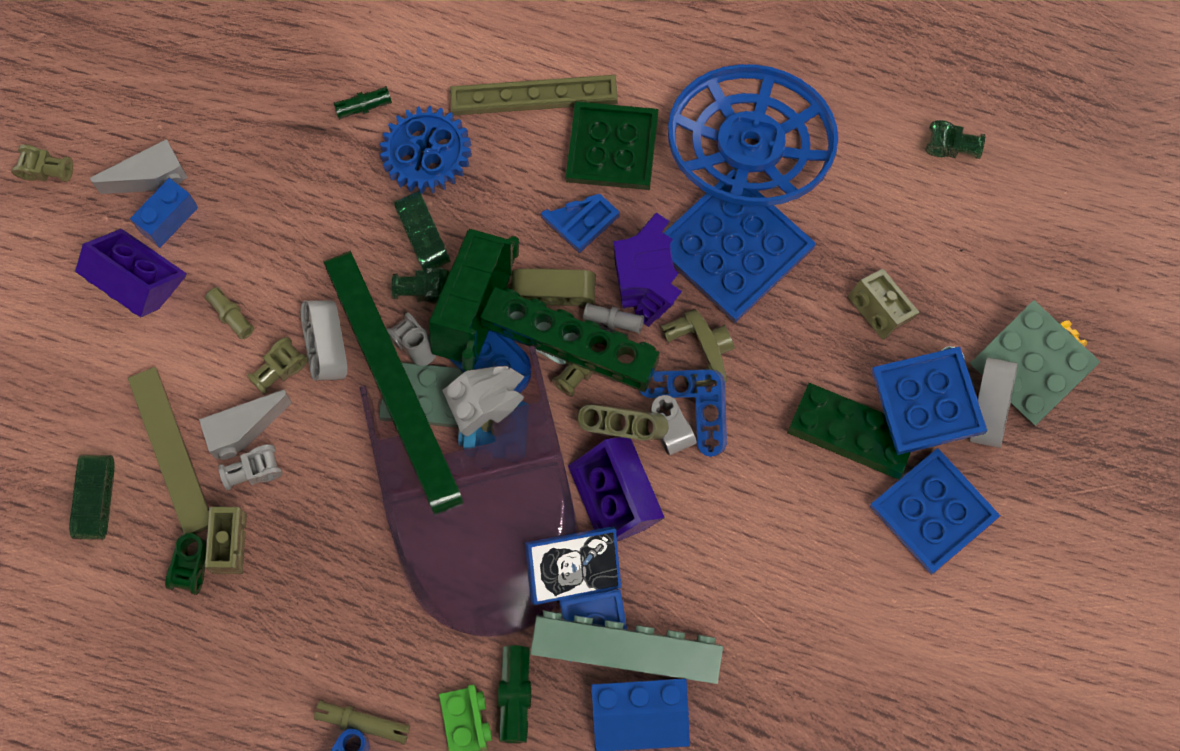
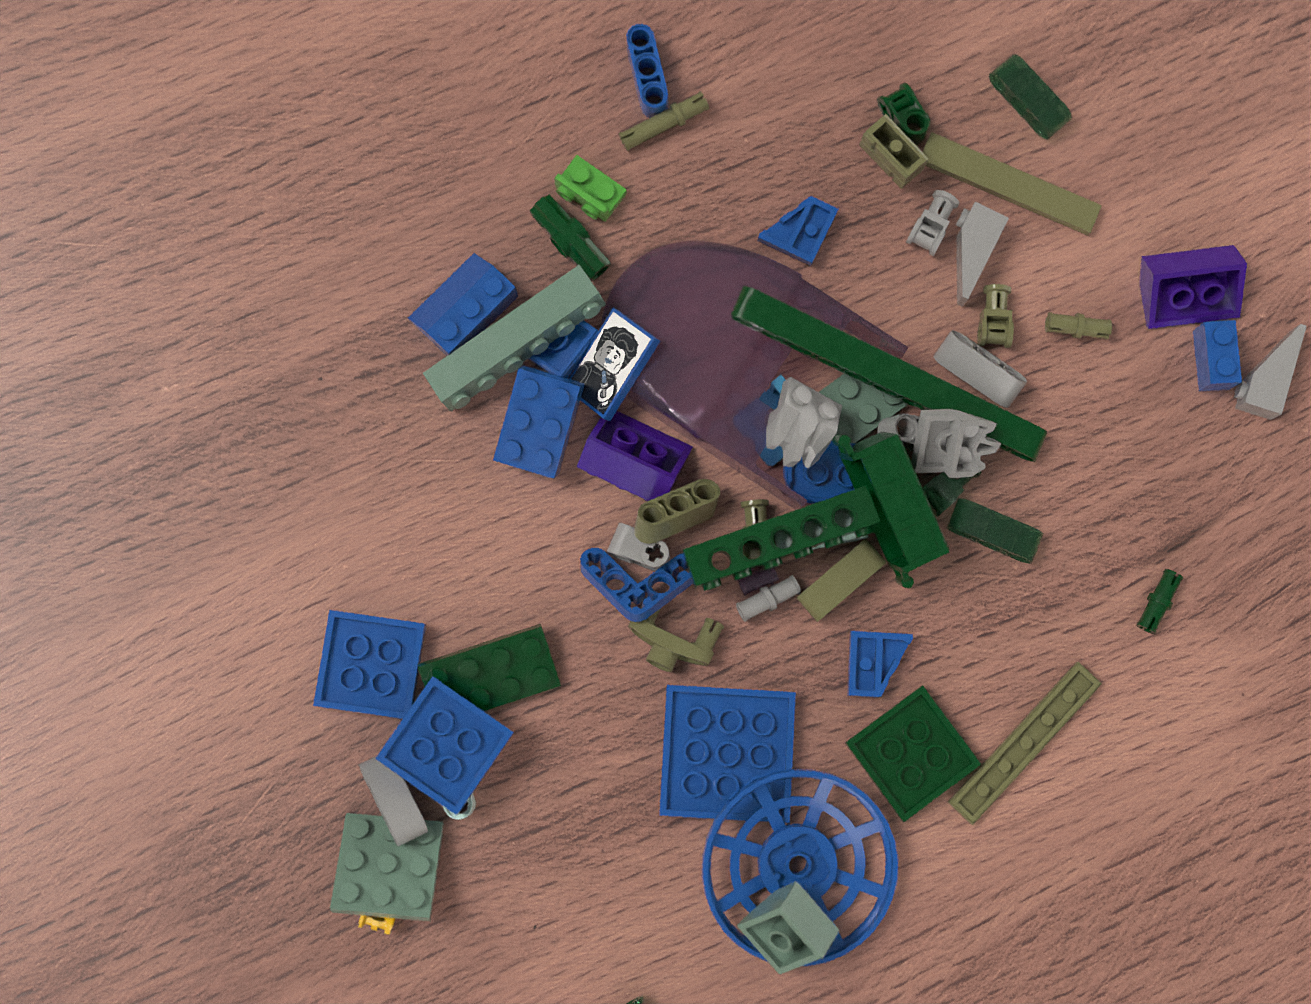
camera: 130 degrees right, 10 degrees up
(344, 547) = (801, 230): none -> blue wing
(394, 299) = (952, 443): none -> light grey plate
(402, 143) = (1089, 594): blue gear -> none
(646, 270) = (777, 655): dark purple slope -> none
(663, 570) = (538, 421): none -> blue brick
(794, 100) = (789, 928): none -> sand green slope
(882, 303) = (558, 812): olive bracket -> none

